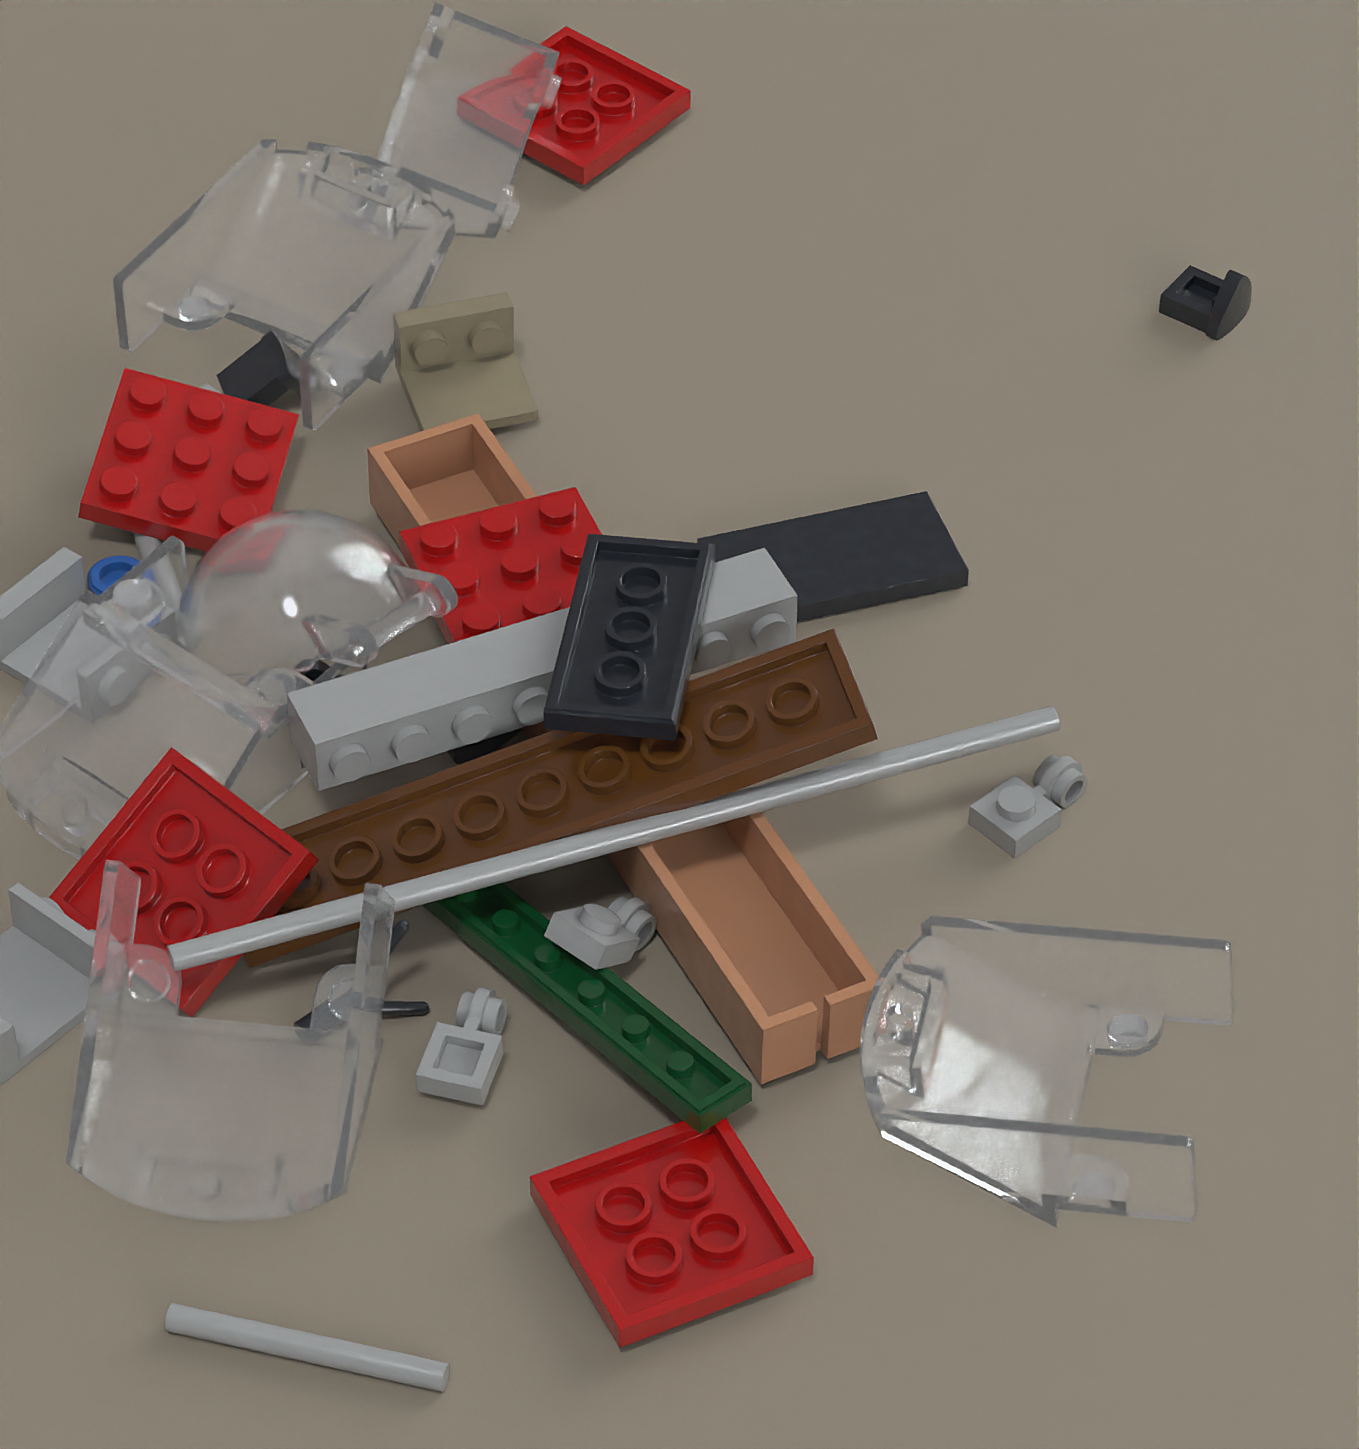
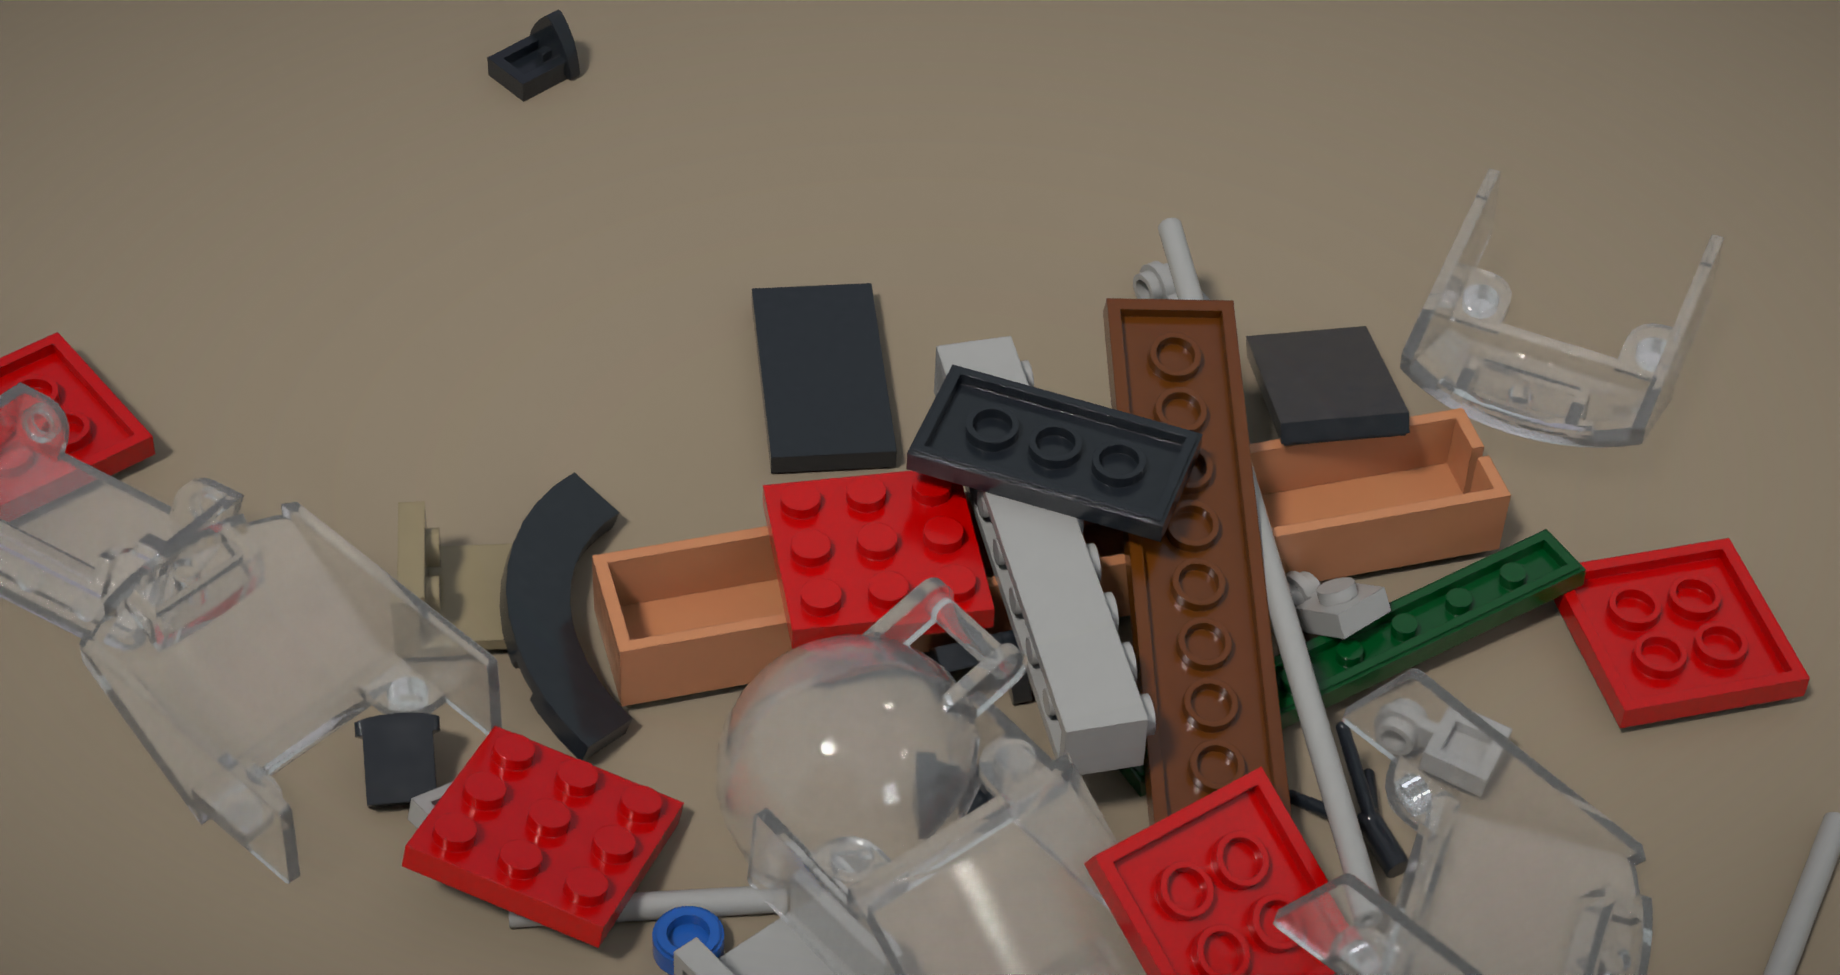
camera: 80 degrees left, 0 degrees up
(511, 410) = (540, 622): none -> black tile
(889, 883) = (1326, 386): none -> black tile

